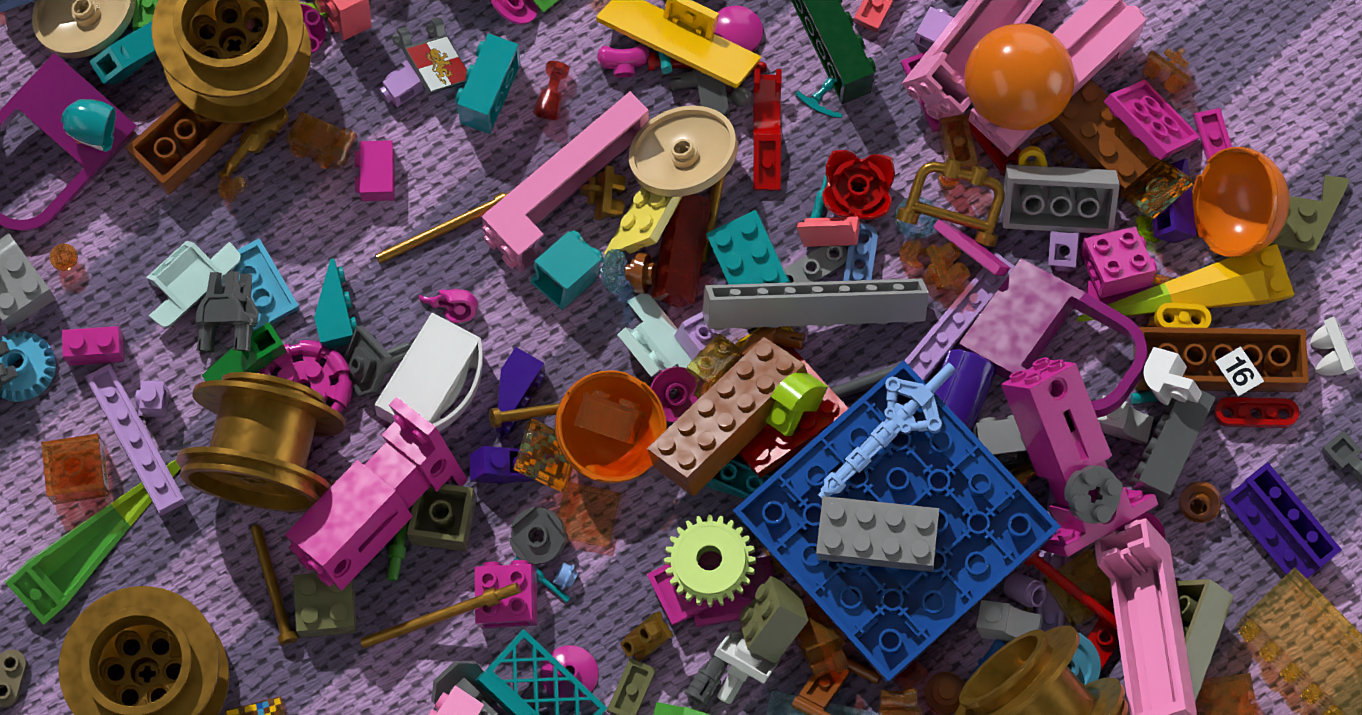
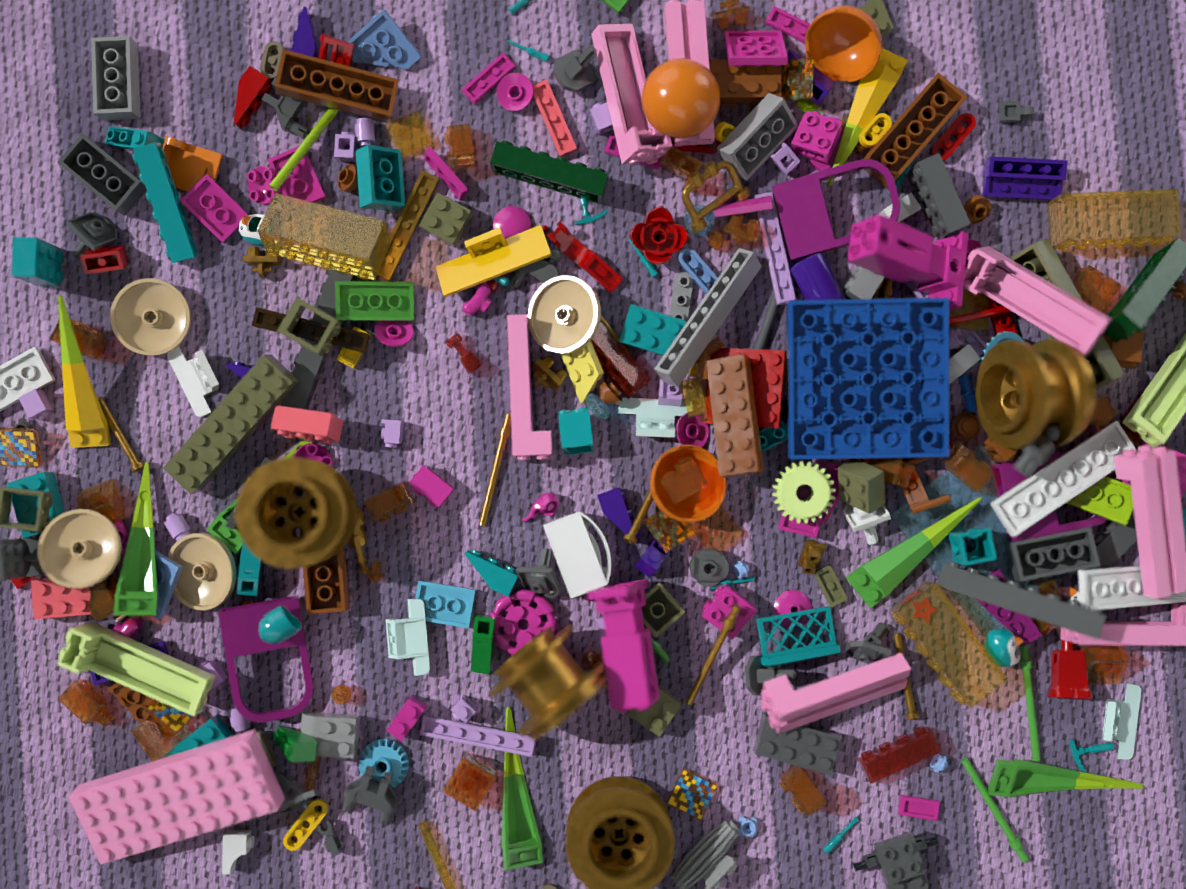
camera: 45 degrees left, 15 degrees up
(227, 305) = (448, 629): dark grey connector -> none
(287, 636) = (619, 725): pearl gold bar -> none
(433, 59) = (393, 402): flag -> none
(488, 83) = (432, 386): teal brick -> none
(706, 681) = (857, 543): dark grey hinge -> none
(792, 397) = (757, 376): lime brick -> none
(829, 231) = (670, 273): coral panel -> none
(877, 534) = (873, 397): light grey brick -> none
(898, 419) = (820, 332): light blue bar -> none
(1107, 496) = (945, 256): dark grey plate -> none
(1164, 377) = (907, 172): white brick -> none
(1239, 371) = (931, 127): white sticker -> none
(1340, 359) = (961, 71): white tile -> none

